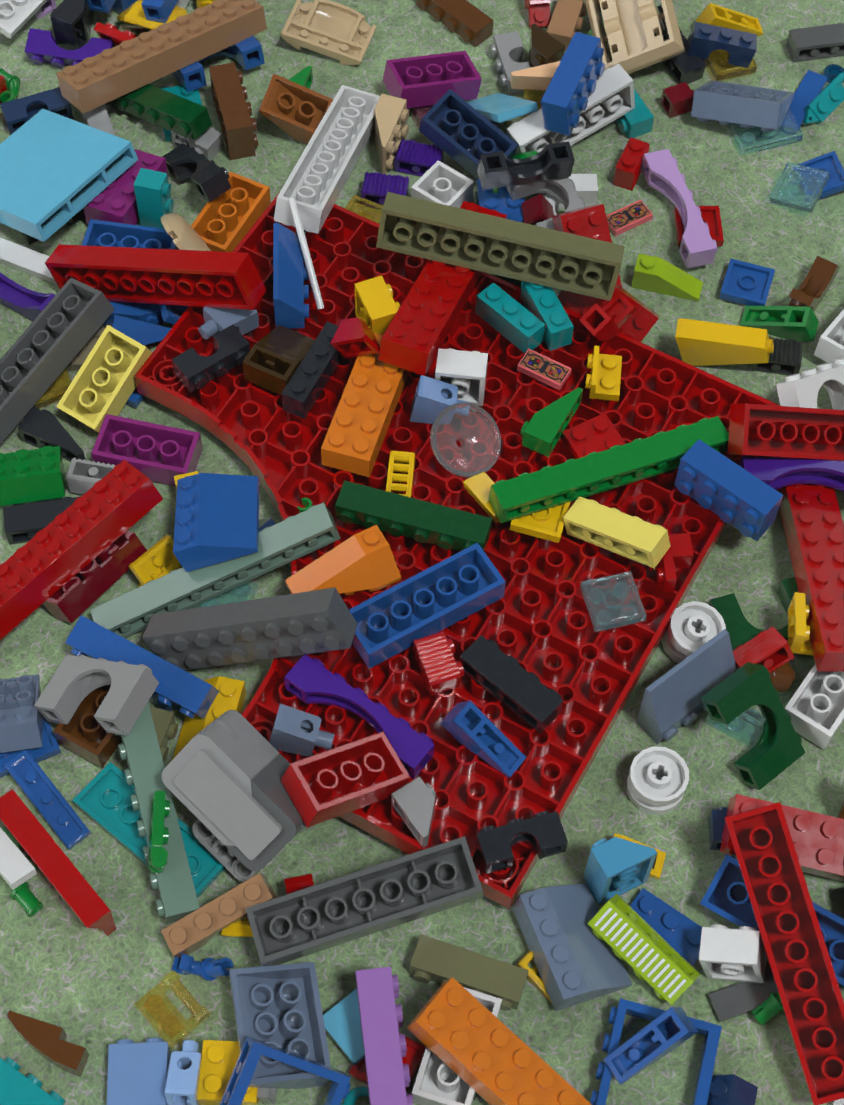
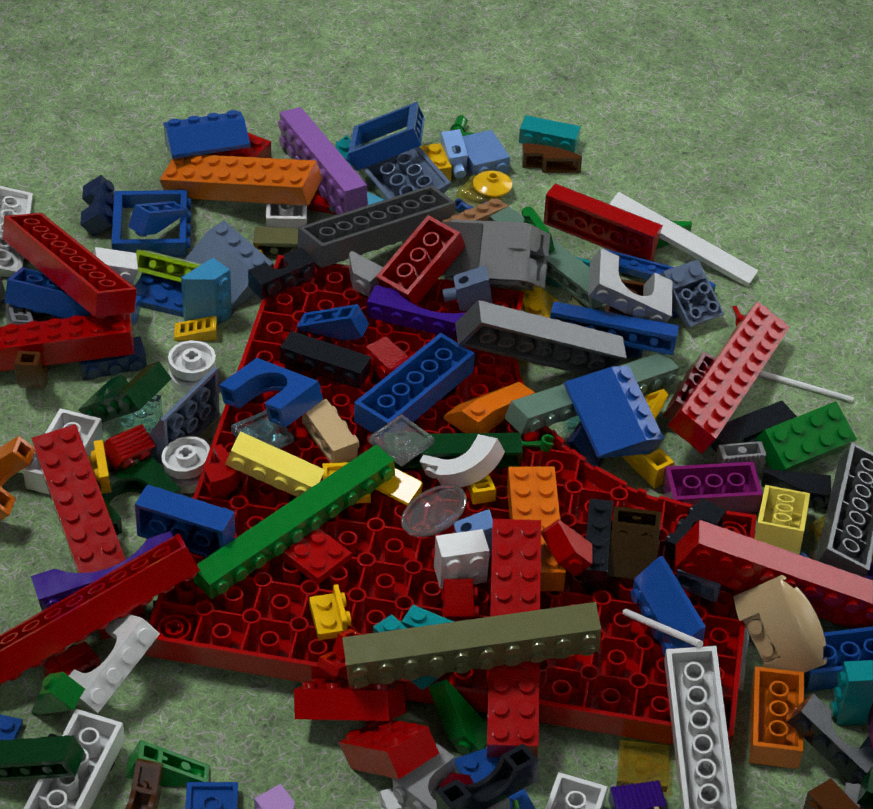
camera: 160 degrees right, 15 degrees down
(158, 1020) = (492, 184): none -> yellow dish
(375, 304) = (564, 587): yellow brick -> none
(416, 472) = (469, 467): none -> white arch
(471, 518) = (402, 439): none -> clear plate
(480, 338) = (459, 599): none -> red brick
(537, 579) = (330, 433): none -> tan brick
(544, 369) = (382, 606): tile -> none
(548, 423) = (365, 553): green slope -> none
(593, 671) = (295, 396): none -> blue arch
(664, 278) = (306, 783): lime slope -> none
(721, 344) = (223, 705): yellow slope -> none
(785, 358) = (165, 730): pearl dark grey brick -> none

